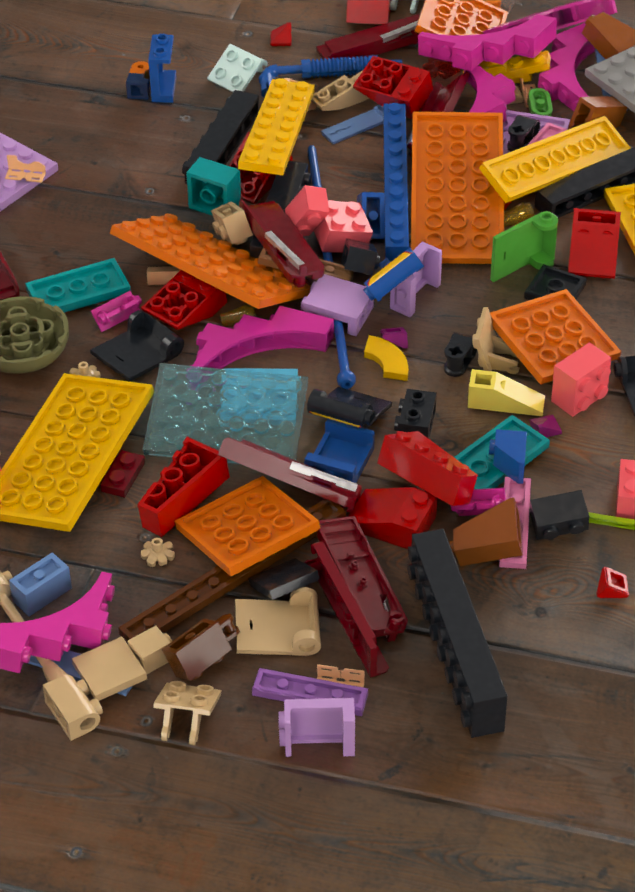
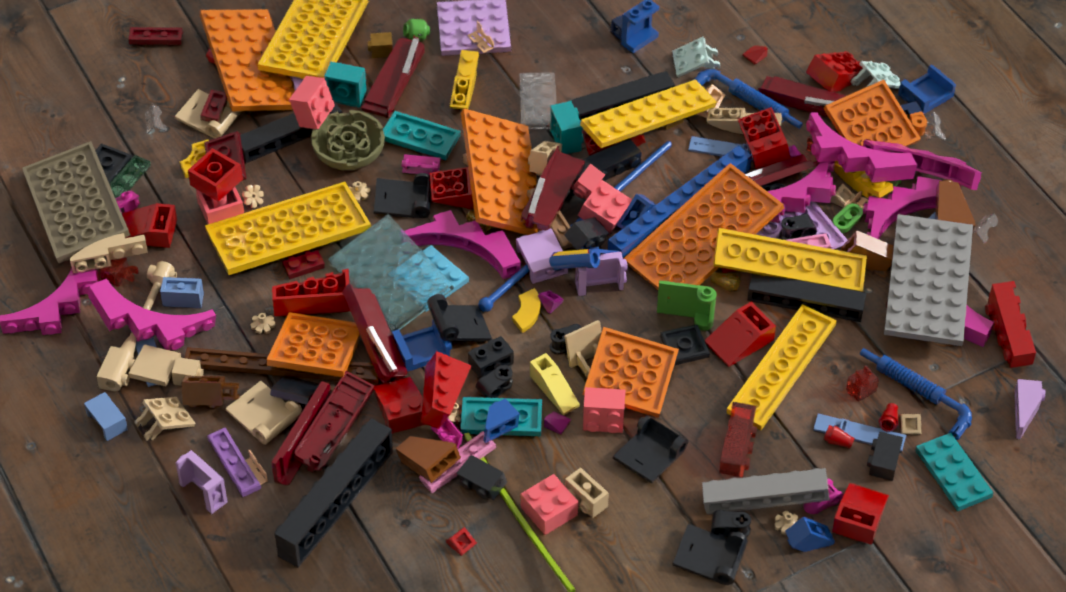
camera: 45 degrees right, 5 degrees up
(55, 217) = (464, 80): none -> yellow slope
(125, 750) = (106, 415): none -> medium blue panel
(143, 189) = (536, 96): none -> clear plate
(453, 431) = (495, 382): none -> black piece

